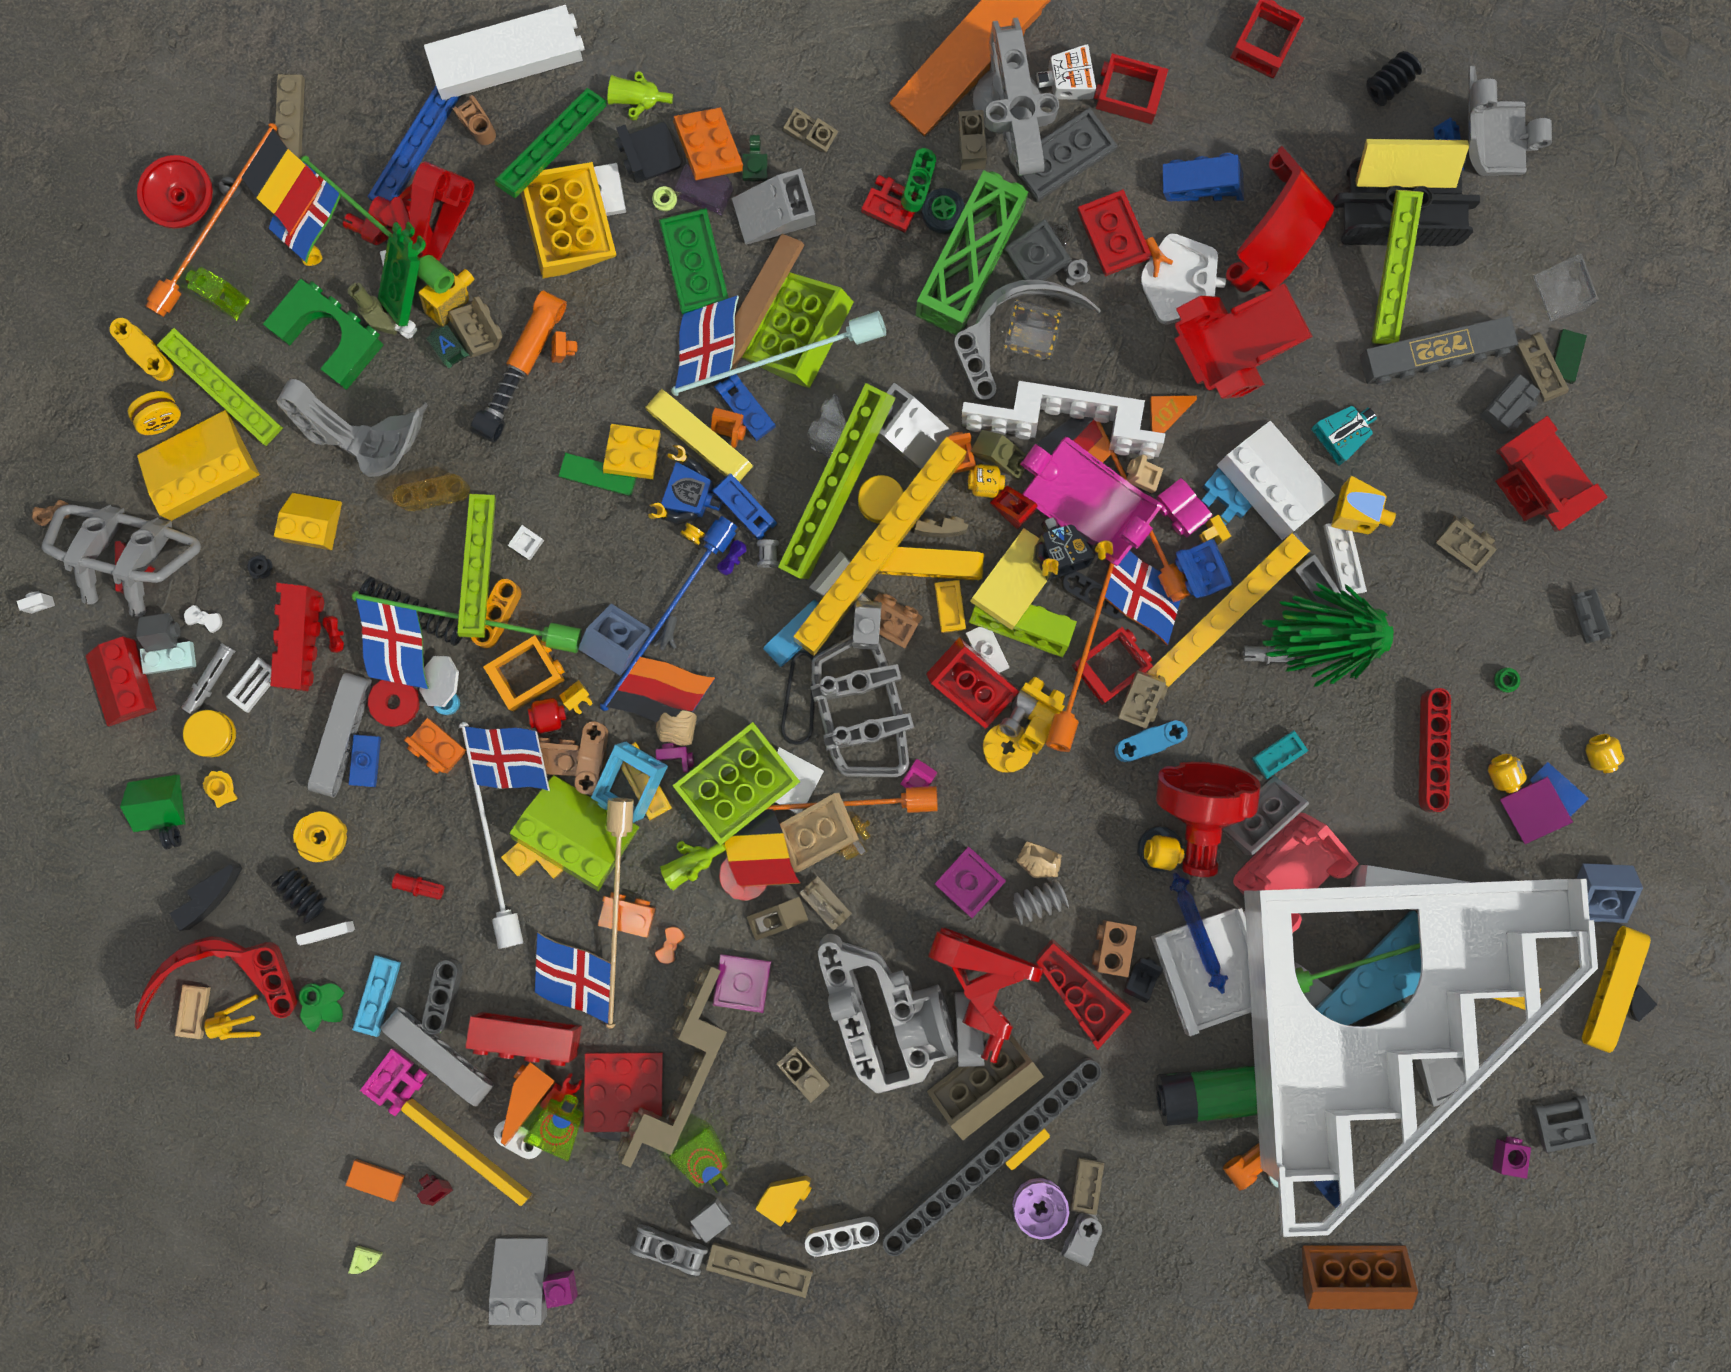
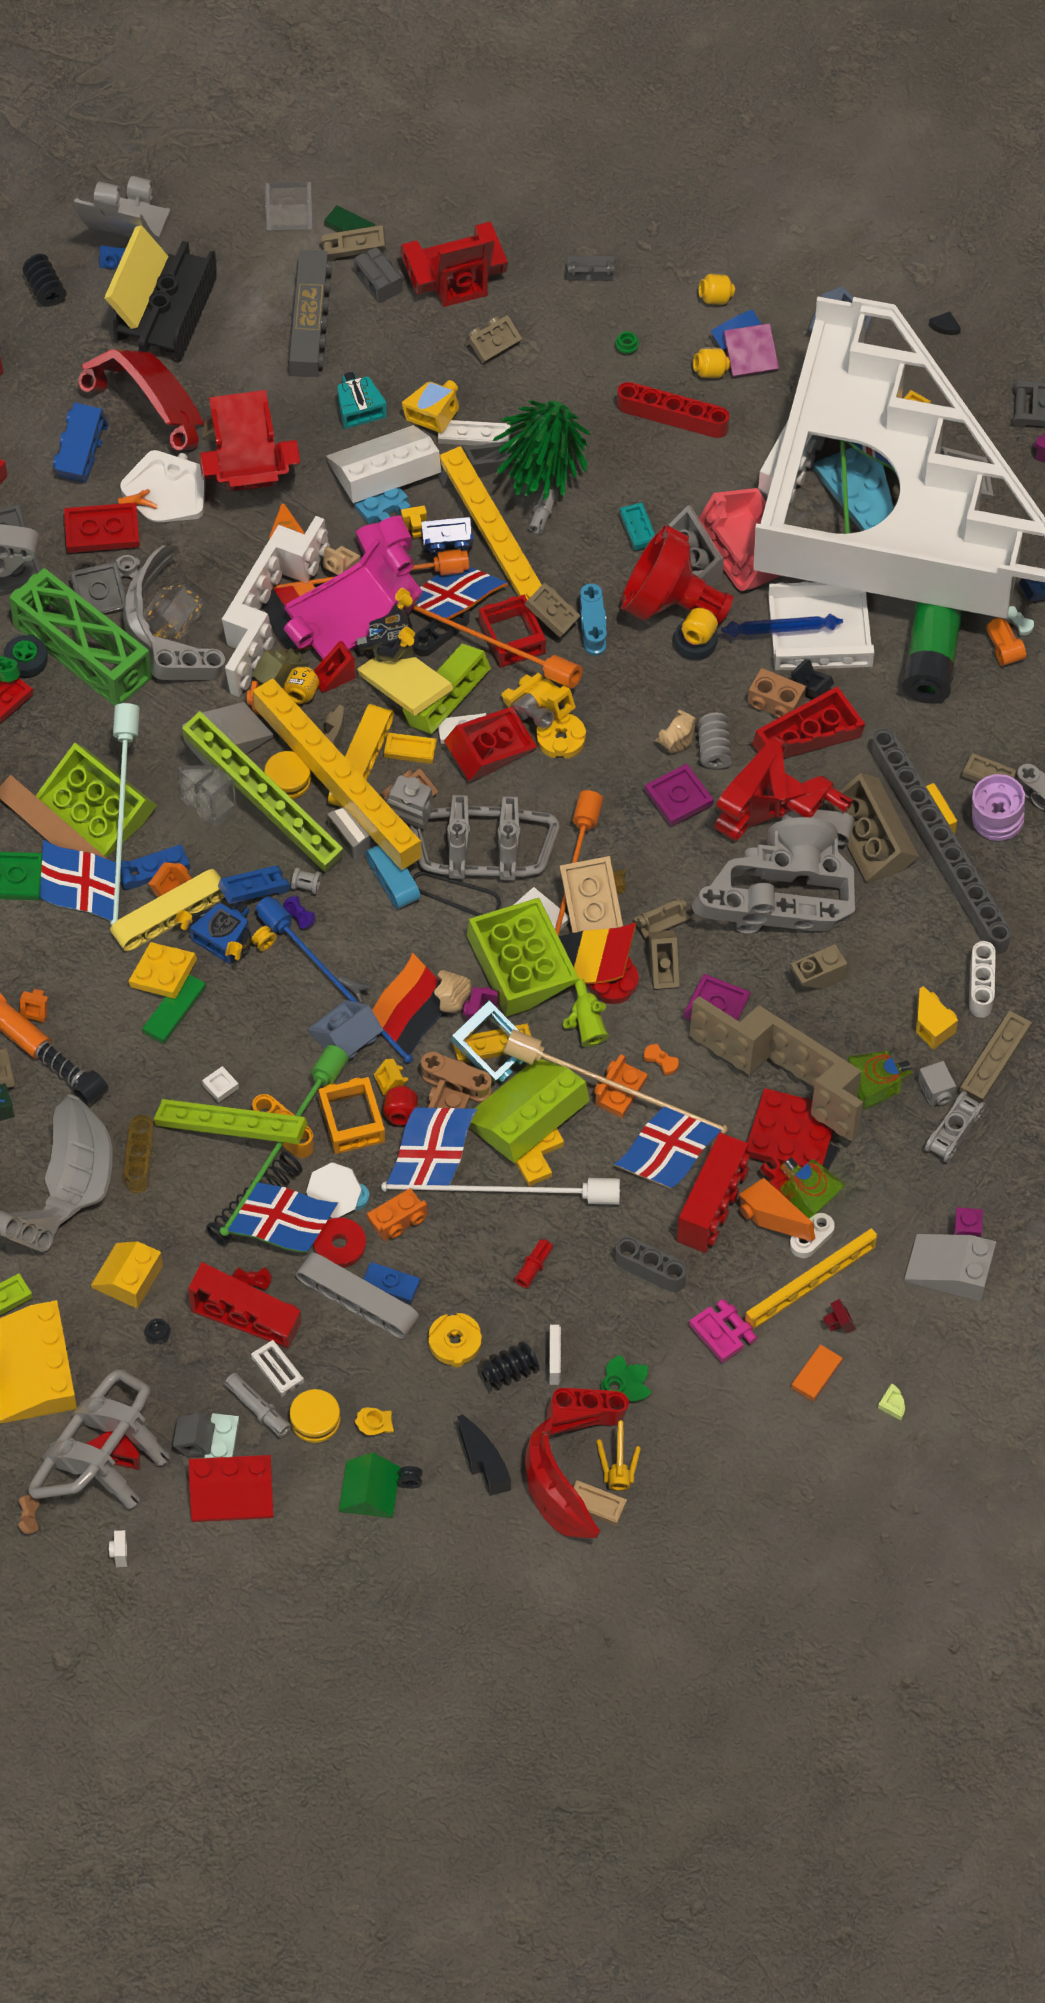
camera: 75 degrees left, 25 degrees down
(194, 615) = (197, 1391): white piece -> none
(376, 995) = (632, 1329): medium azure tile -> none
(437, 1056) = (708, 1284): light grey beam -> none
(919, 775) = (564, 813): dark pink slope -> none
(1397, 266) = (225, 316): lime tile -> none
(1616, 989) = (938, 341): yellow beam -> none

